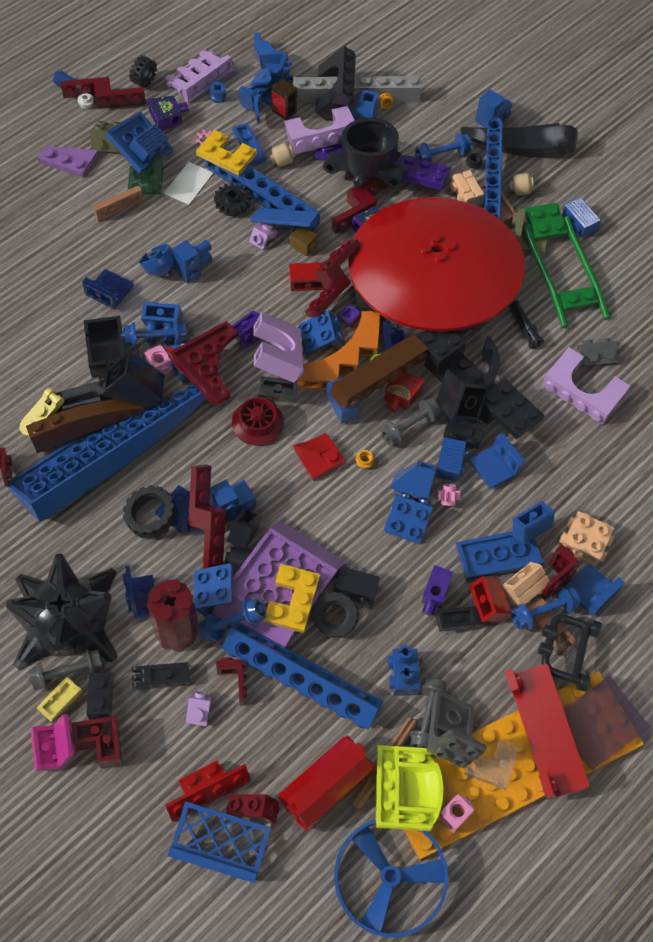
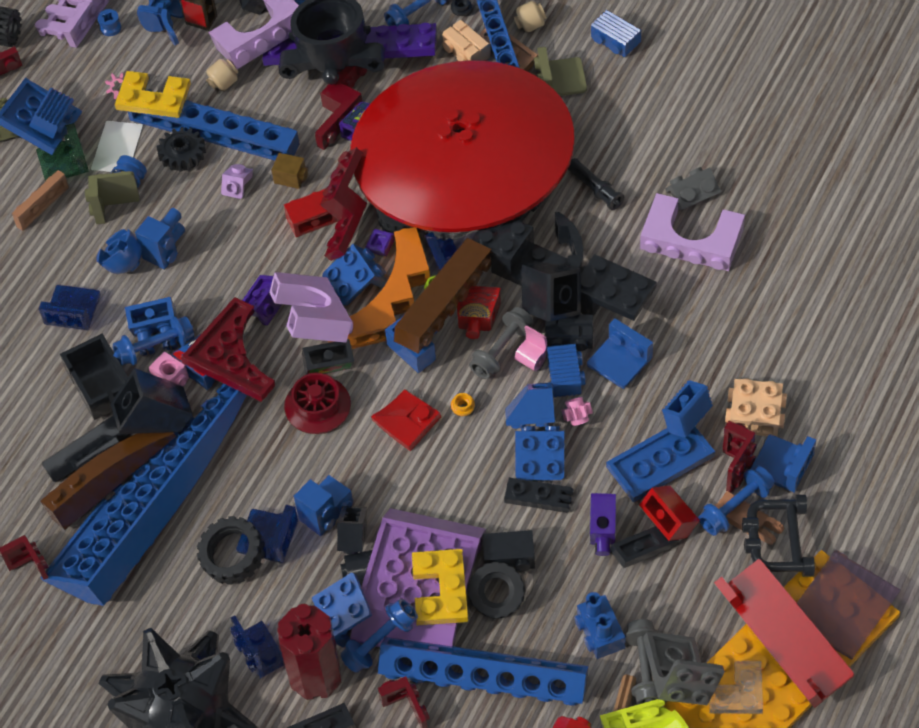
camera: 10 degrees left, 5 degrees down
(42, 409) = (51, 477): light yellow plate -> none
(166, 111) = (54, 67): dark purple torso -> none
(169, 212) = (110, 190): none -> olive bracket
(188, 203) = (129, 163): none -> blue wheel
(207, 516) = (304, 529): dark red bracket -> none
(245, 135) = (165, 66): blue plate -> none
(286, 217) = (258, 150): blue slope -> none
(396, 549) = (538, 495): none -> black hinge
(432, 436) = (532, 350): none -> bright pink panel
(526, 584) = (704, 481): light nougat brick -> none
(545, 223) = (578, 53): green plate -> none

